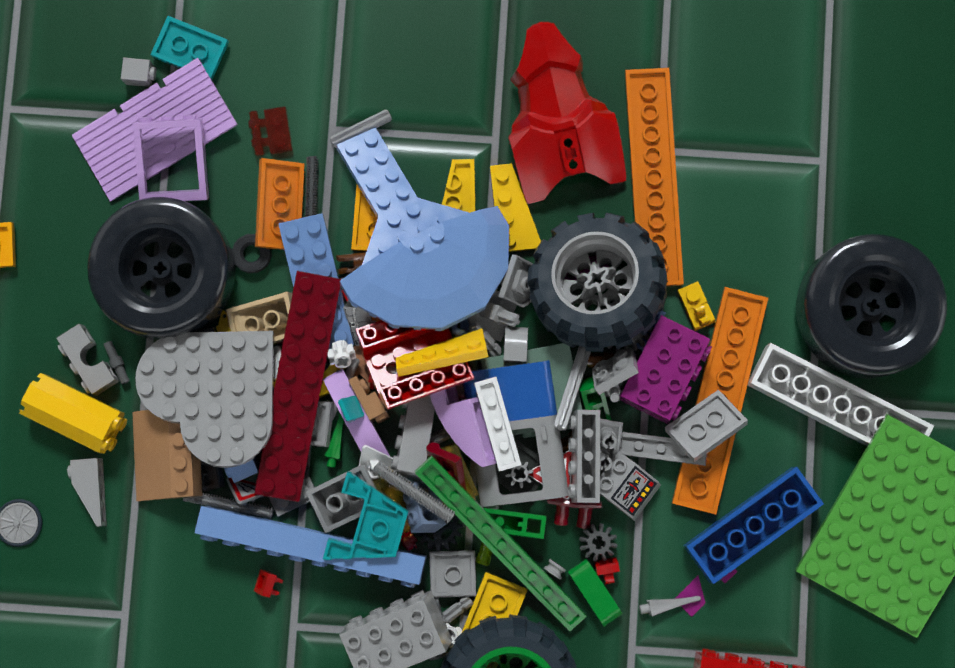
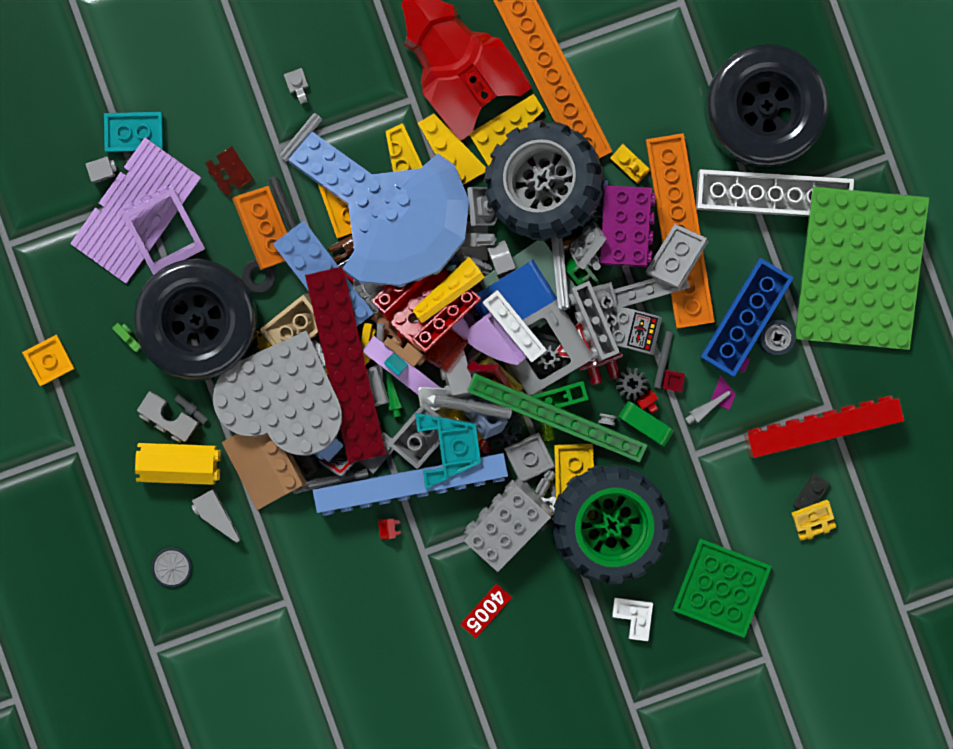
camera: 30 degrees left, 5 degrees up
(82, 251) = (124, 332): none -> bright green plate
(341, 354) = (368, 325): white gear -> none
(382, 71) = (297, 83): none -> light grey plate
(412, 417) = (446, 350): none -> clear red plate
(567, 208) = (495, 130): none -> yellow wing
(644, 529) = (663, 359): none -> dark grey bar
(644, 559) = (673, 381): none -> dark red plate
(785, 570) = (786, 341): none -> wheel

